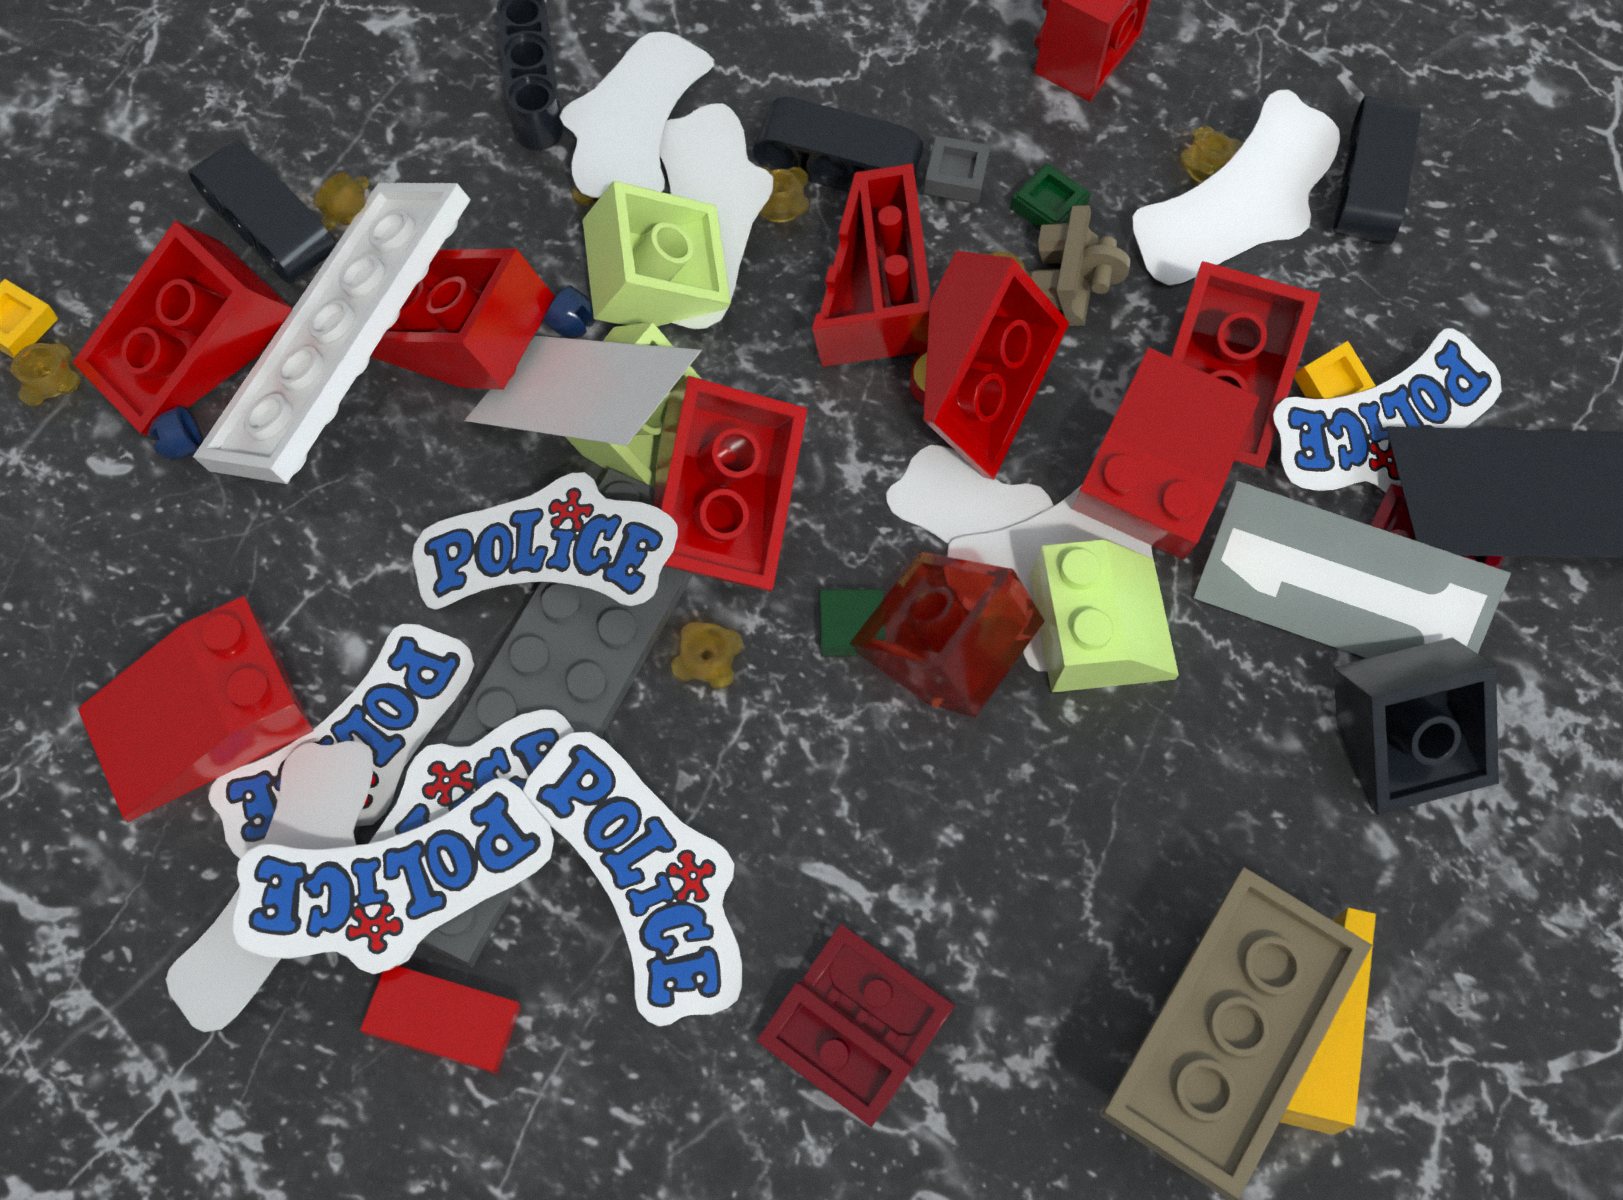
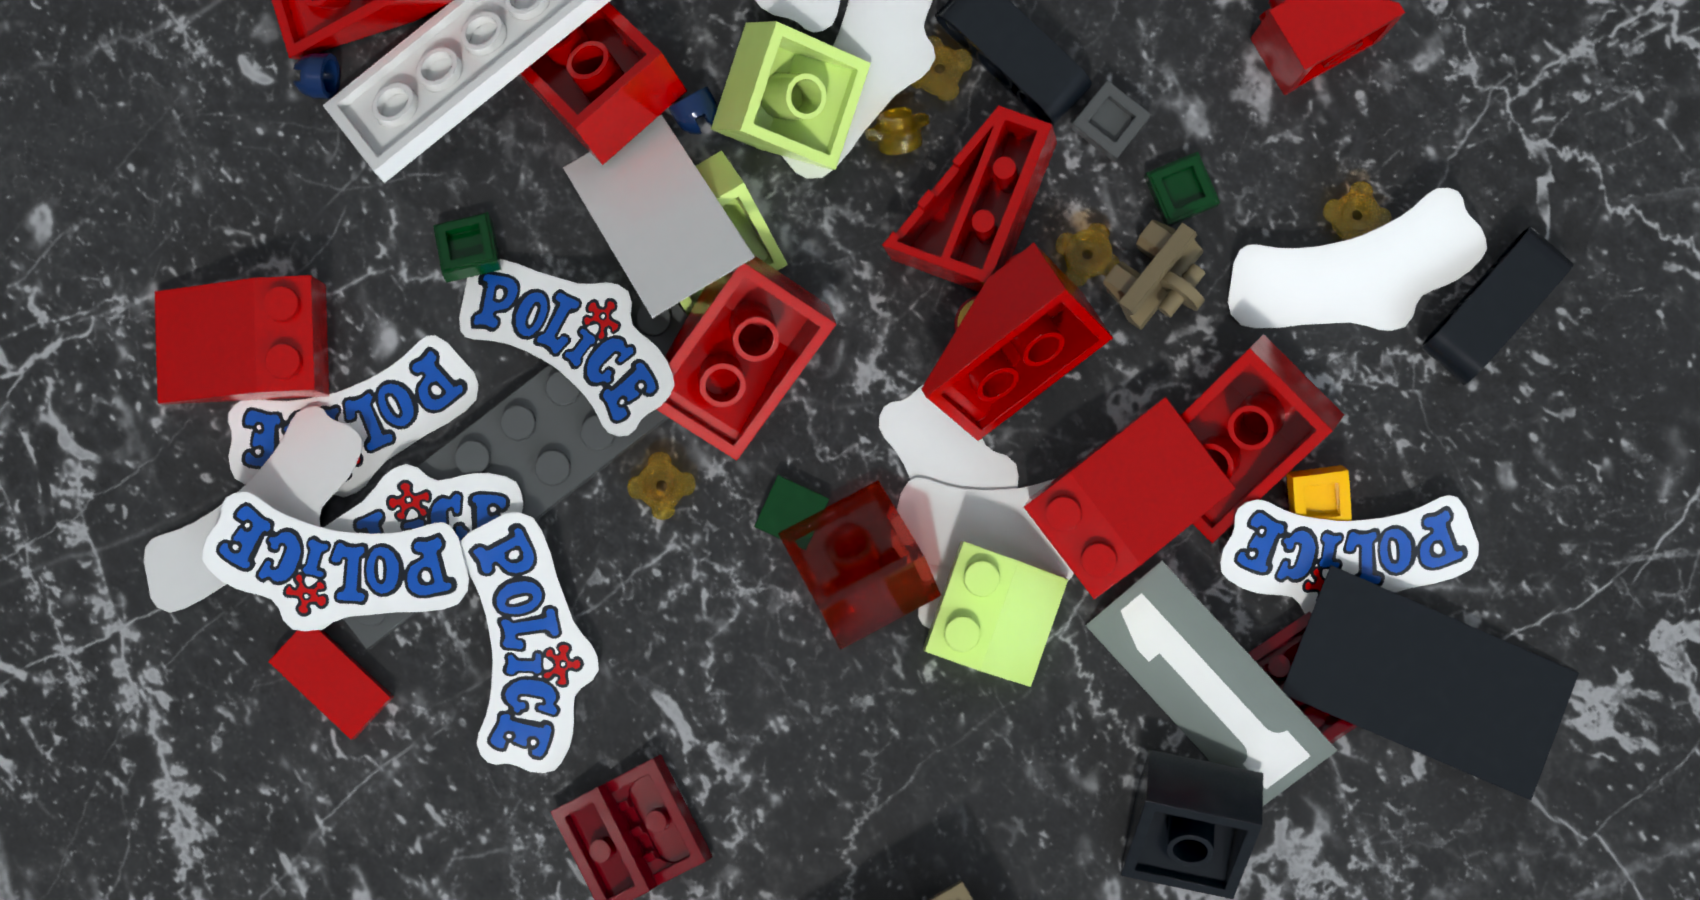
camera: 30 degrees right, 20 degrees up
(400, 522) = (467, 247): none -> dark green tile
(770, 250) = (898, 131): none -> clear yellow plate

